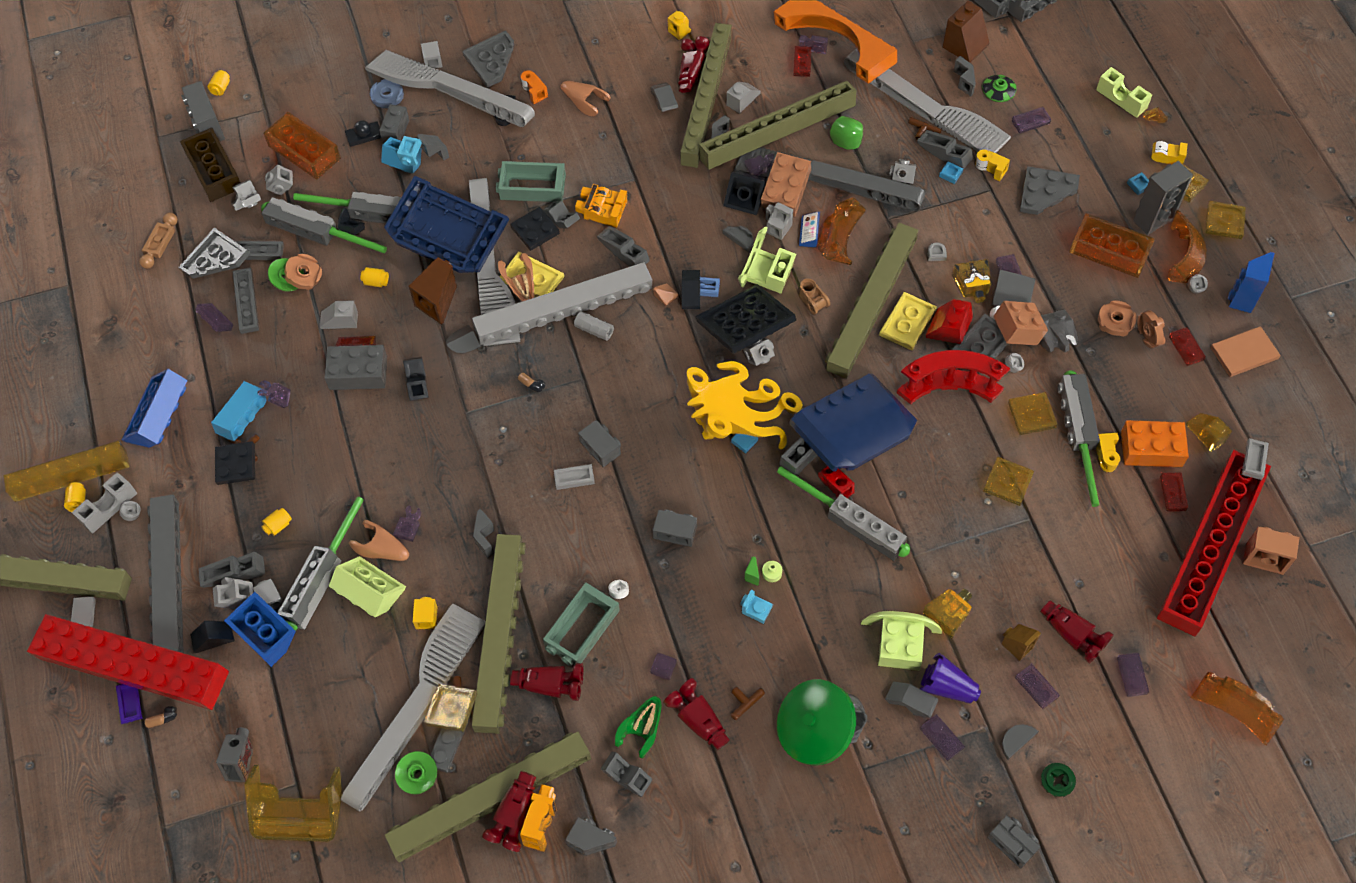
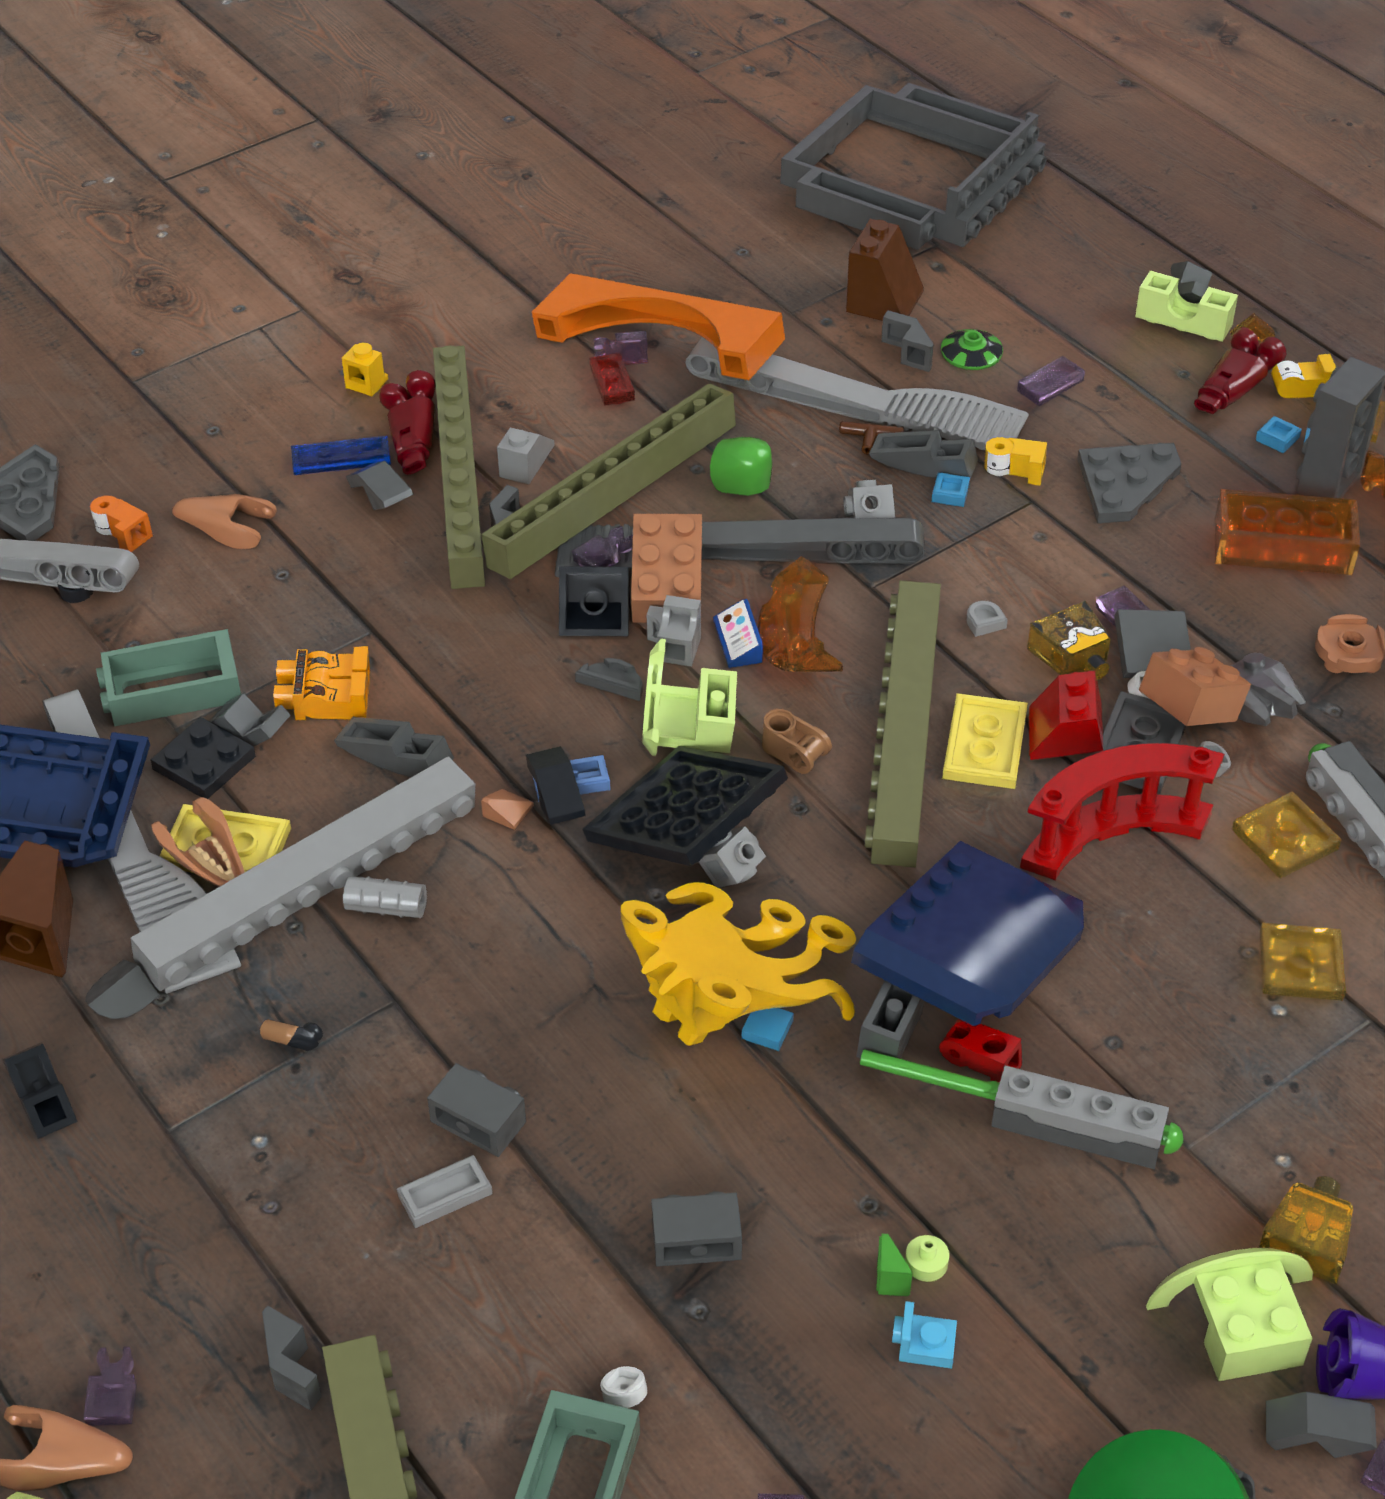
camera: 20 degrees left, 15 degrees down
(652, 73) = (339, 455): none -> clear blue tile
(1134, 139) = (1239, 370): none -> dark red piece
(1135, 76) = (1192, 280): none -> dark grey slope

